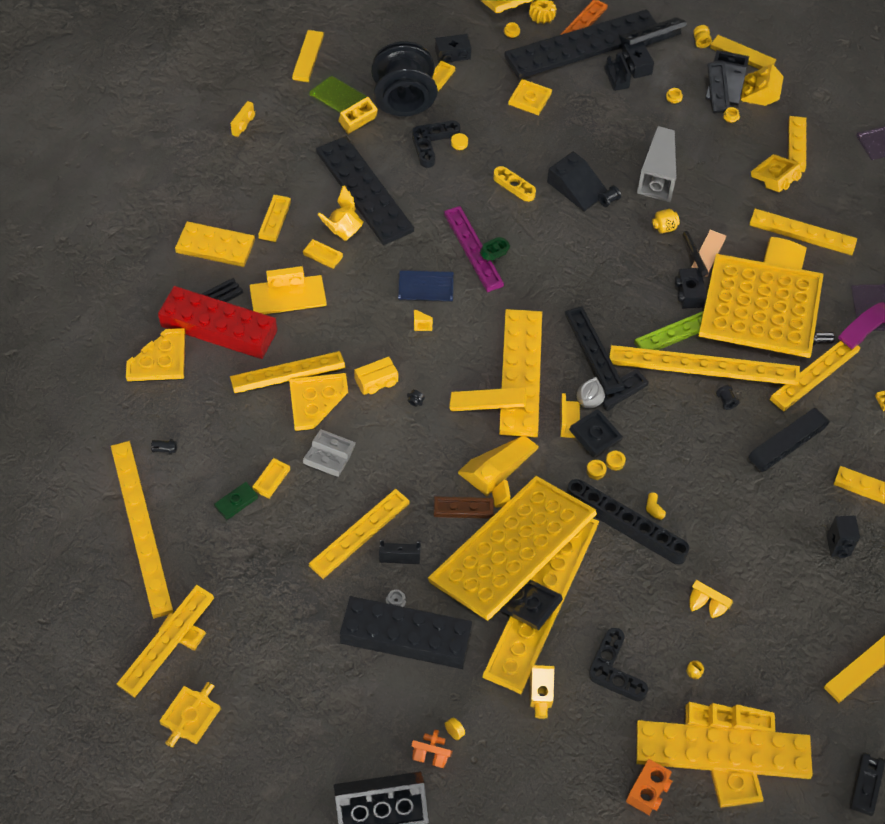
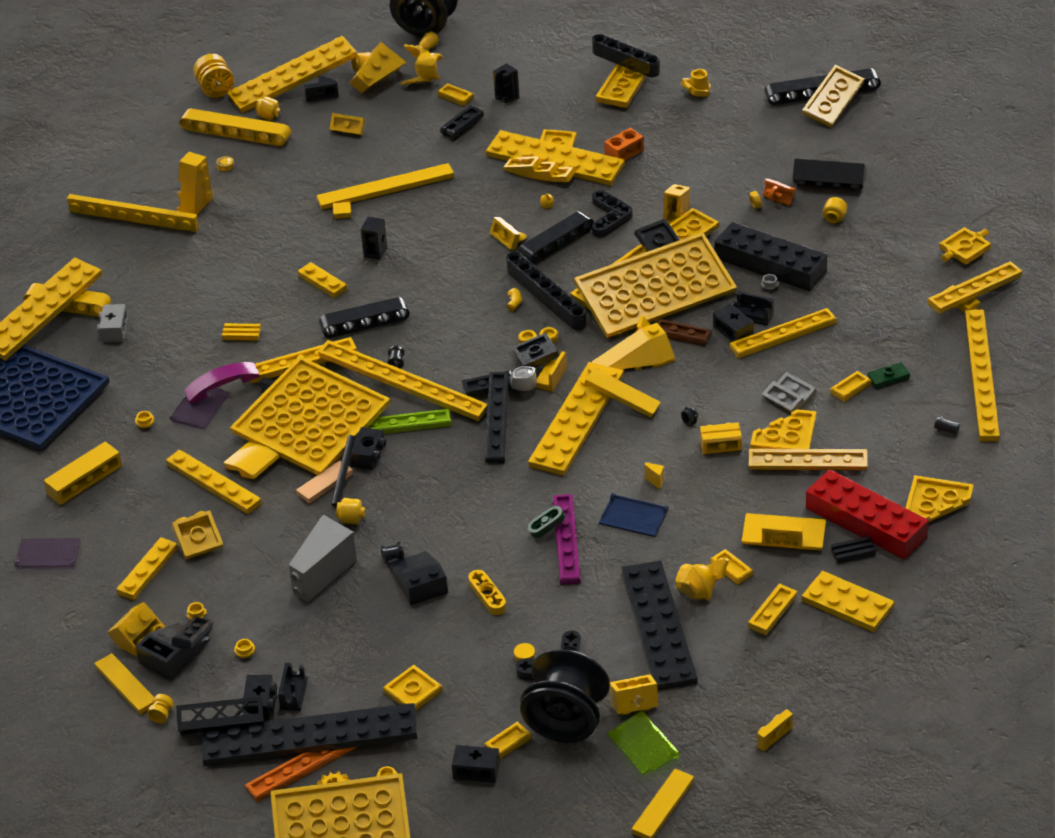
camera: 155 degrees left, 15 degrees down
(356, 735) = (834, 210): none -> yellow head
(413, 523) = (732, 323): none -> black brick
(653, 605) = (556, 237): none -> black beam

